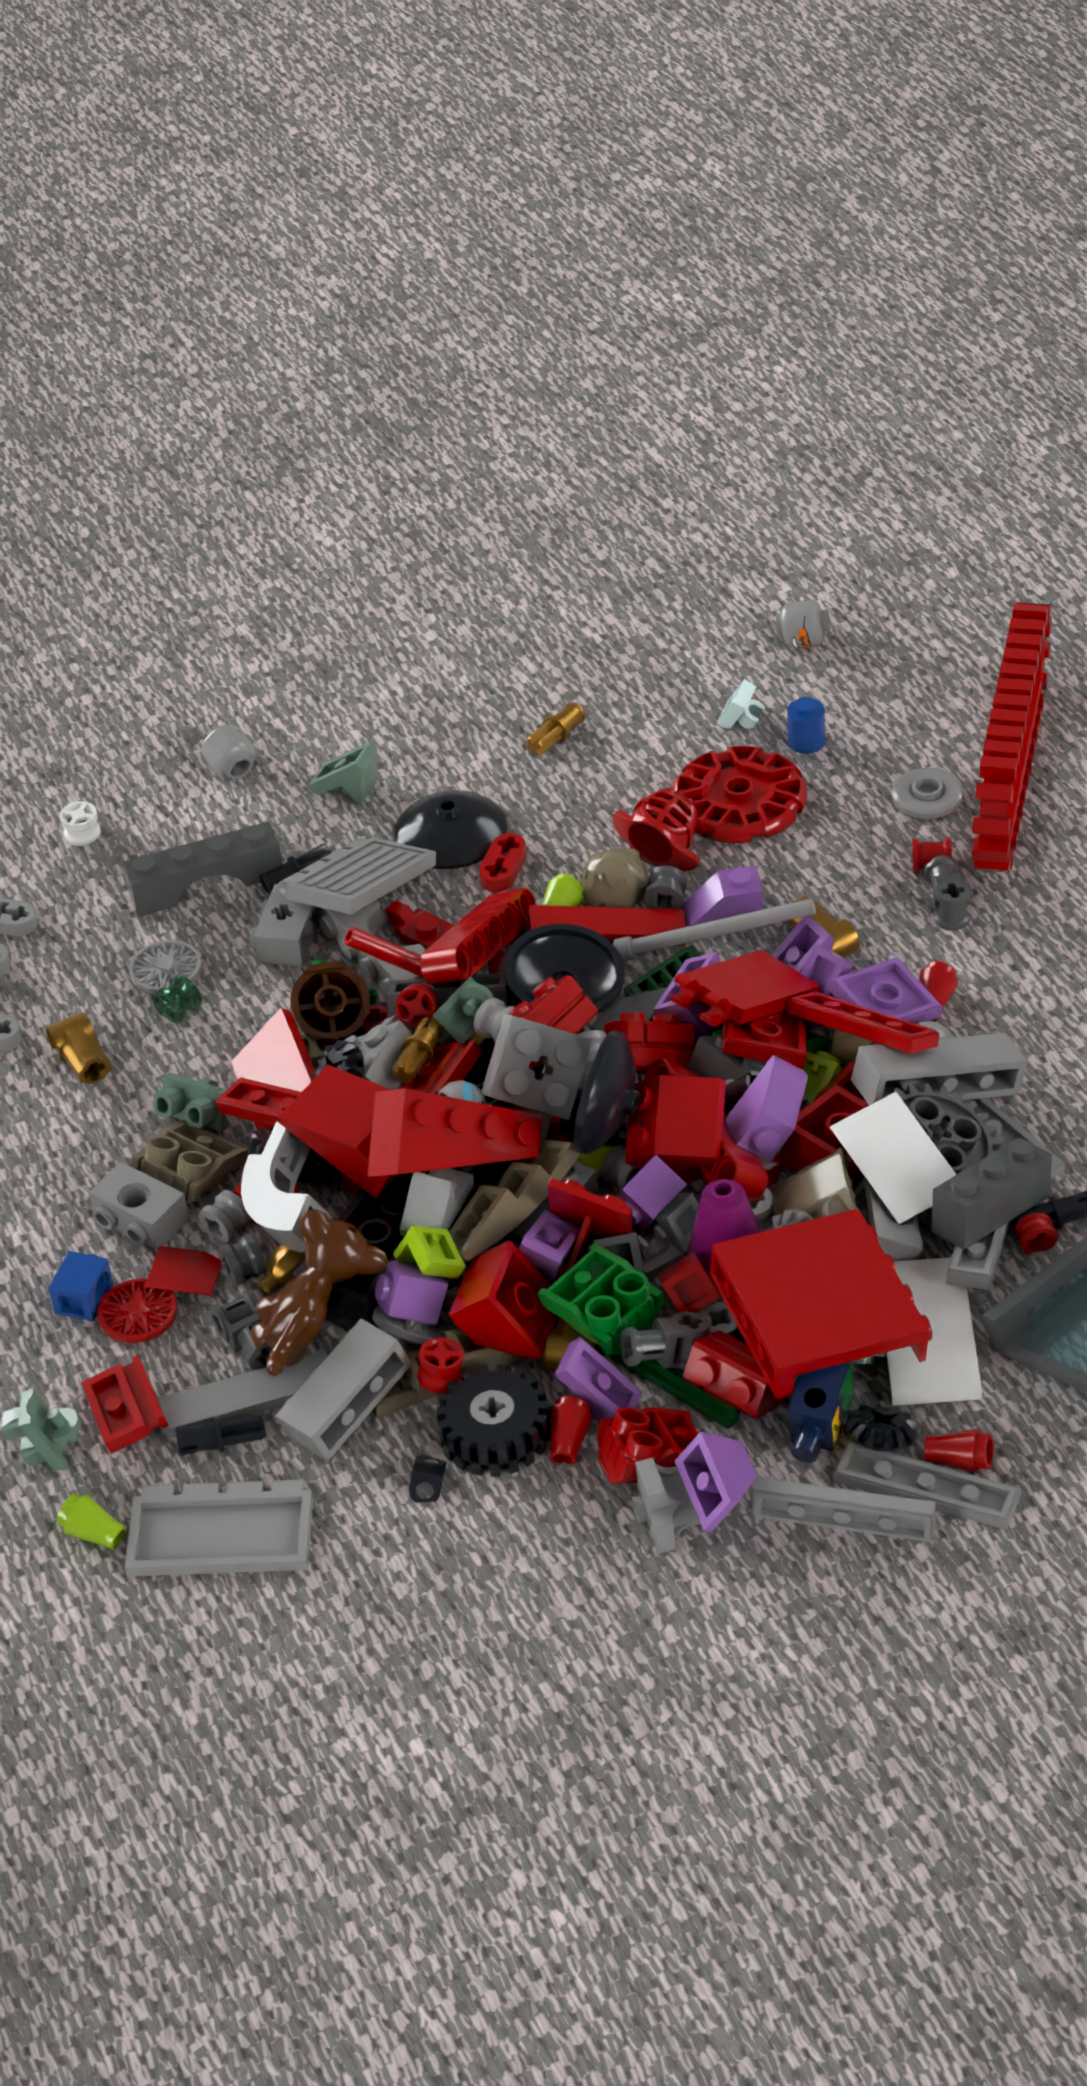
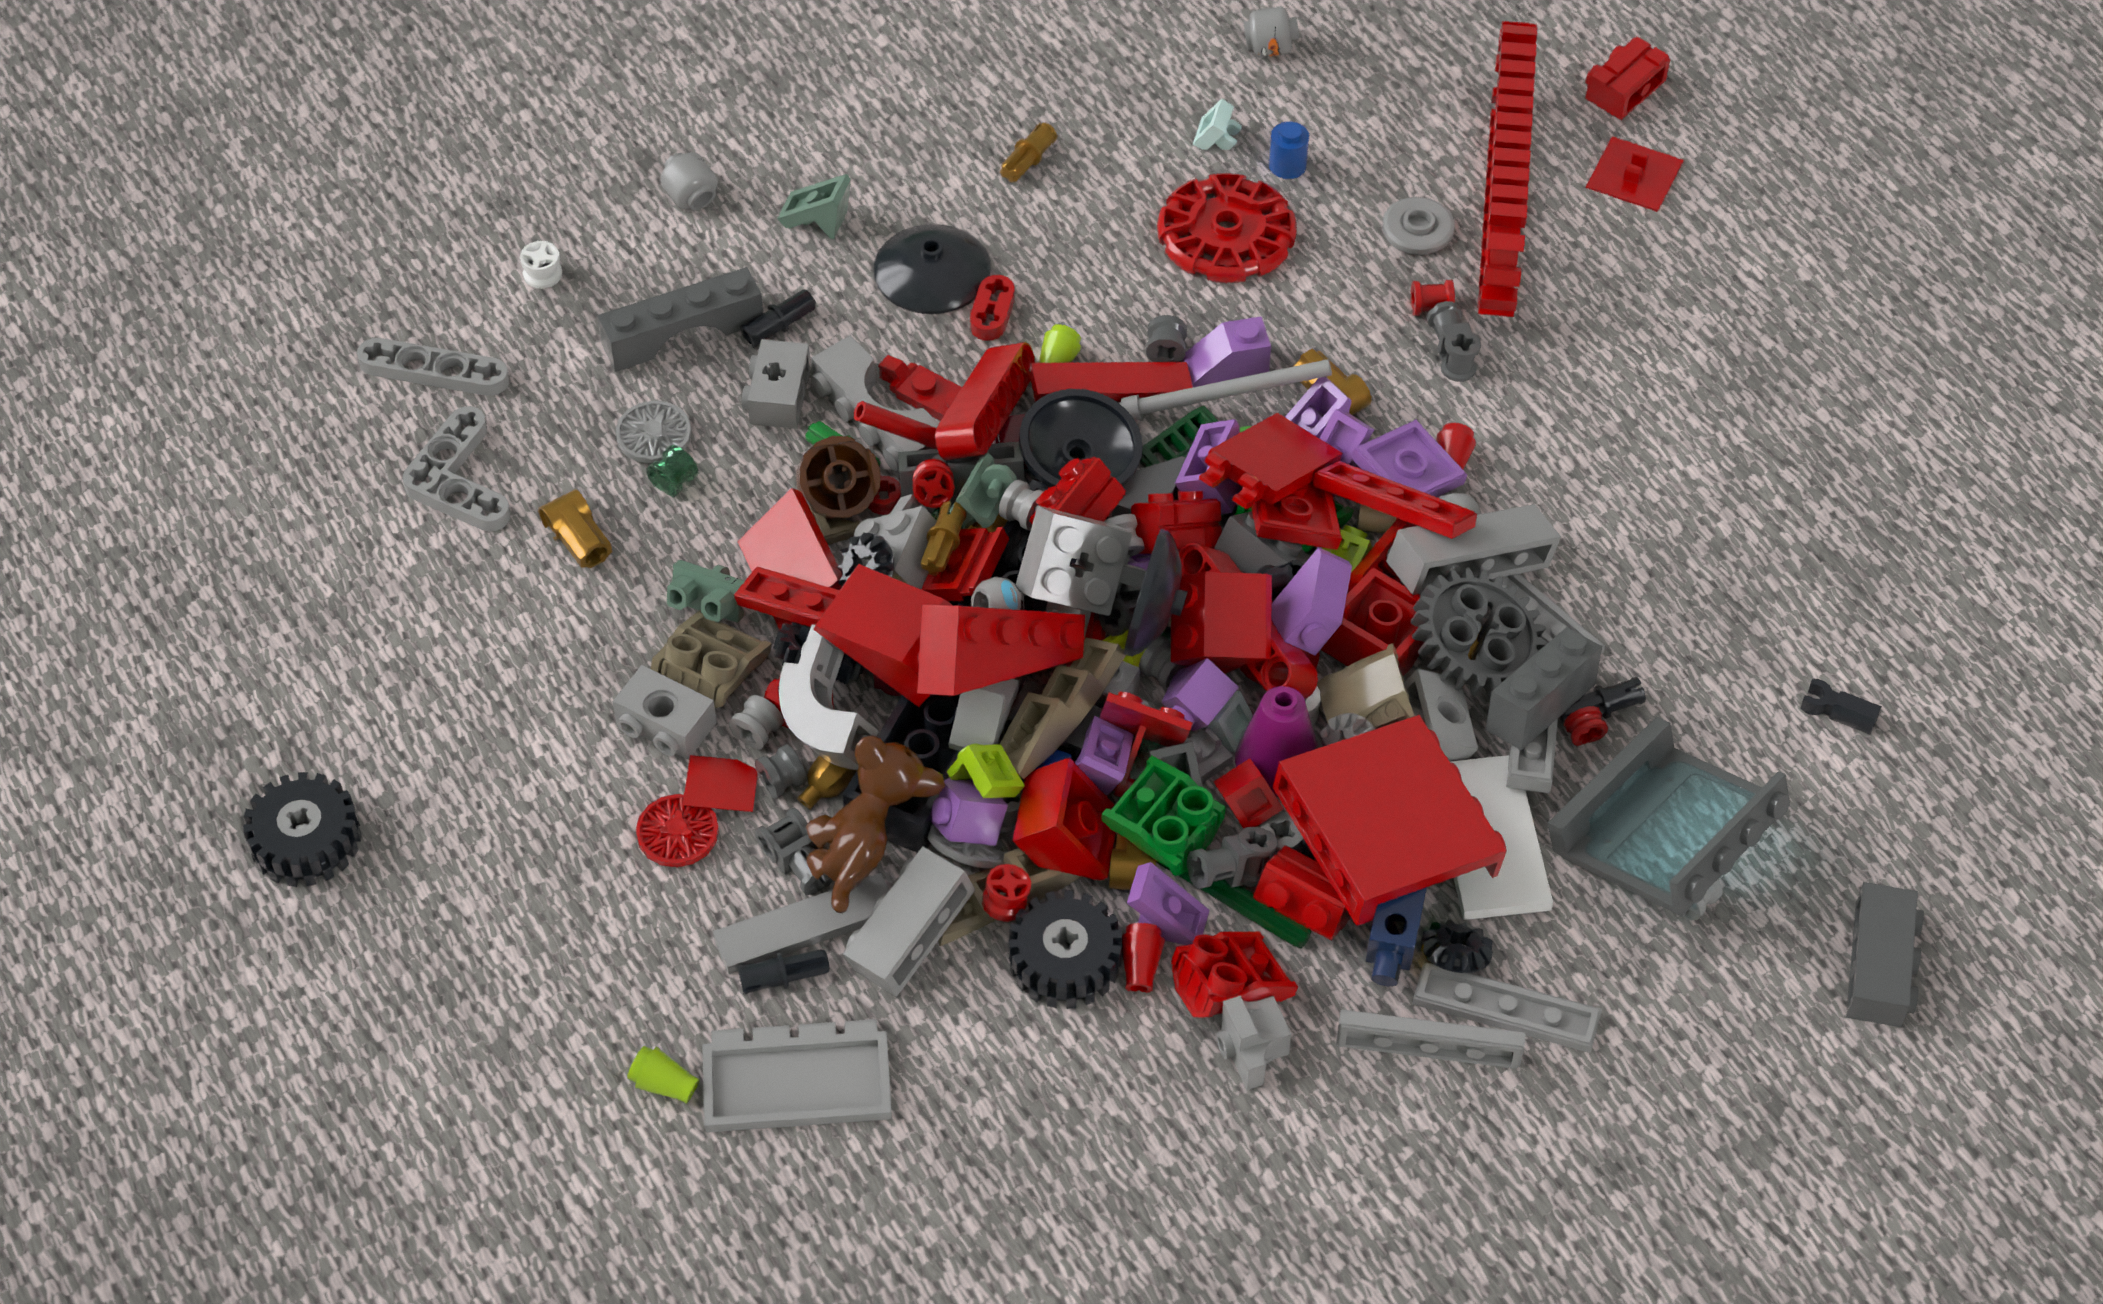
camera: 10 degrees left, 10 degrees up
(45, 1430) = (600, 976): sand green hips -> none
(80, 1285) = (616, 805): blue brick -> none
(124, 1404) = (679, 940): red plate -> none
(357, 874) = (846, 327): light grey hinge -> none
(429, 1473) = (1003, 1009): black piece -> none
(614, 879) = (1112, 328): dark tan hair -> none
(661, 829) = (1156, 273): red piece -> none
(715, 1476) = (1306, 1016): medium lavender slope -> none
(894, 1155) = (1447, 652): white sticker -> none
(962, 1450) = (1539, 968): red cone -> none

